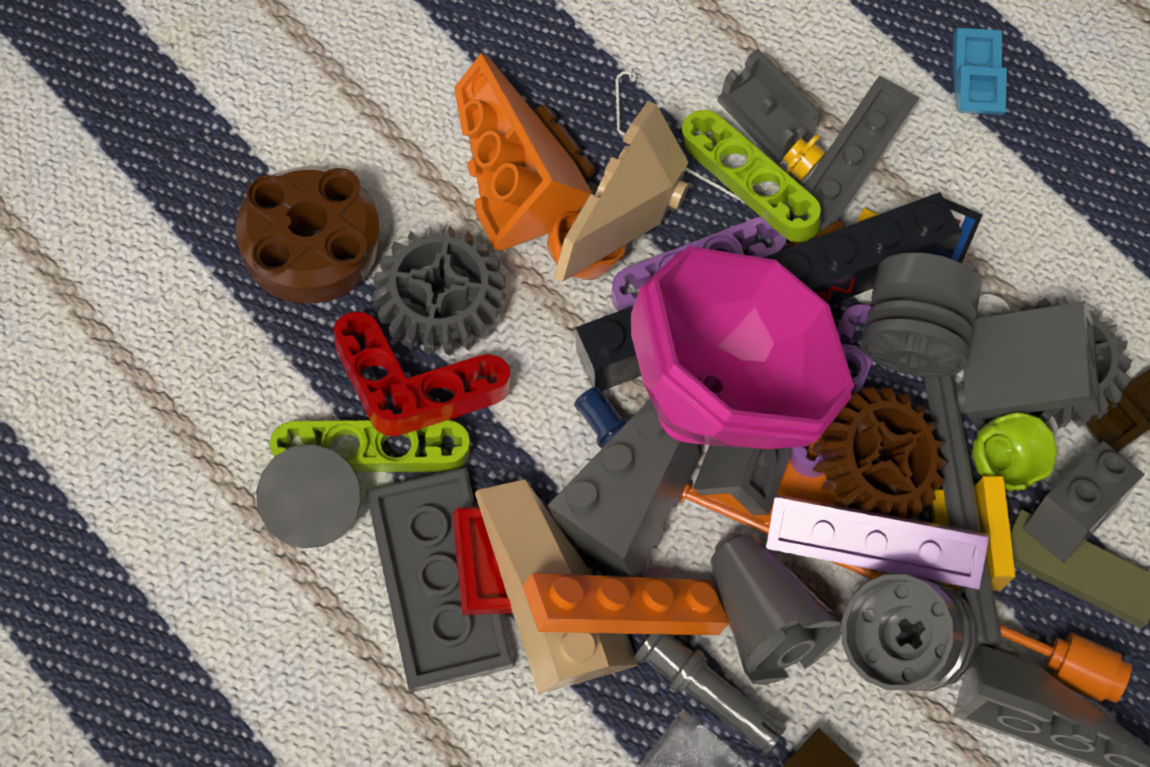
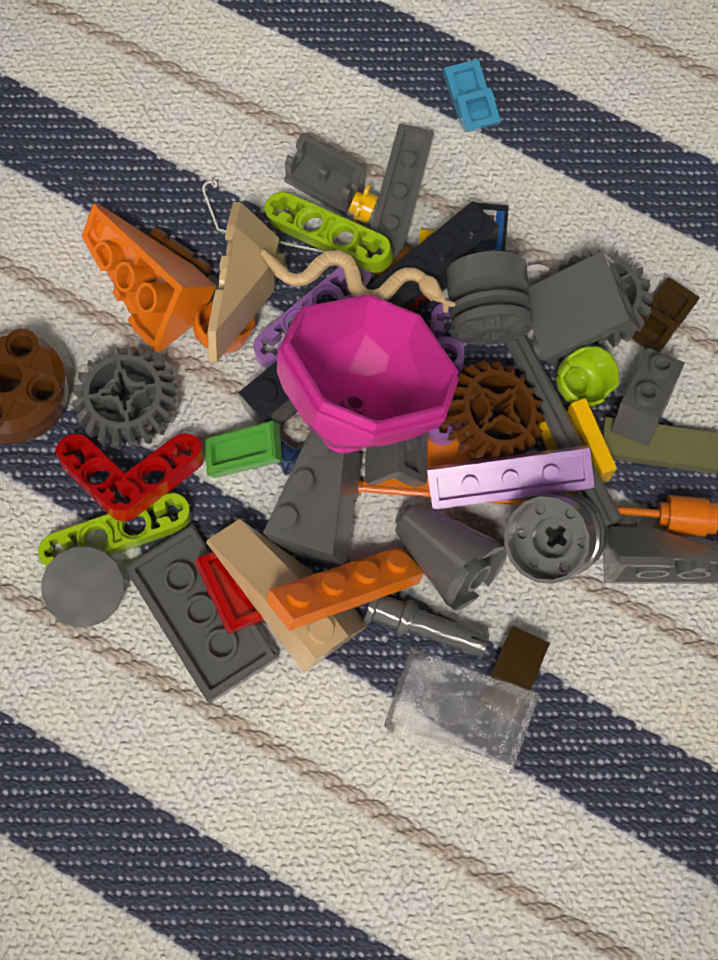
camera: 15 degrees left, 5 degrees up
(558, 398) = (243, 449): none -> bright green tile
(850, 273) = (428, 284): none -> tan animal

